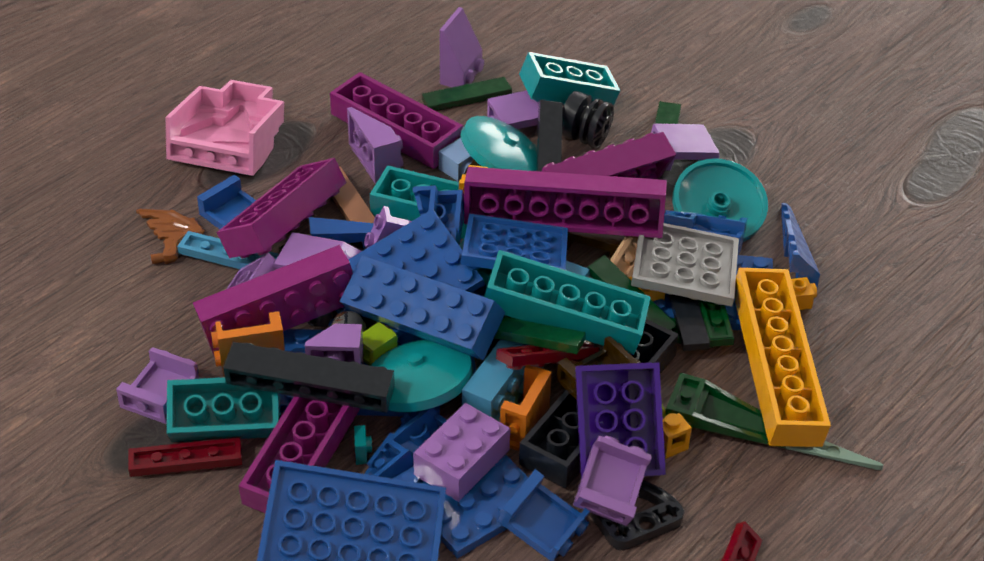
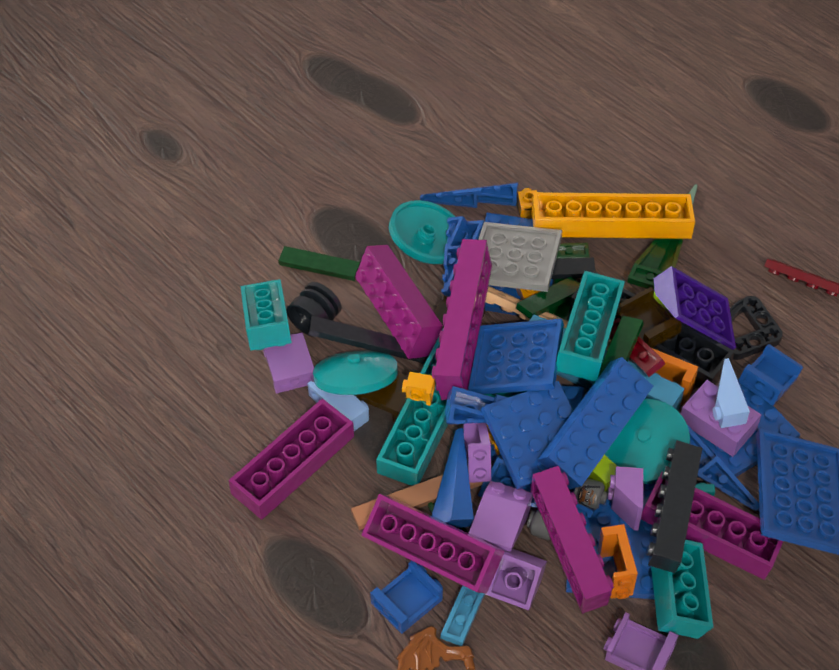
camera: 85 degrees left, 10 degrees up
(184, 457) = (724, 633): dark red plate -> none
(225, 127) = (288, 601): bright pink panel -> none
(373, 143) = (335, 475): medium lavender slope -> none
(459, 51) = (204, 402): medium lavender slope -> none
(466, 94) = (245, 406): dark green tile -> none
(471, 431) = (730, 403): none -> light blue slope
(612, 480) = (747, 327): medium lavender panel -> none
(688, 141) = (349, 246): panel -> none

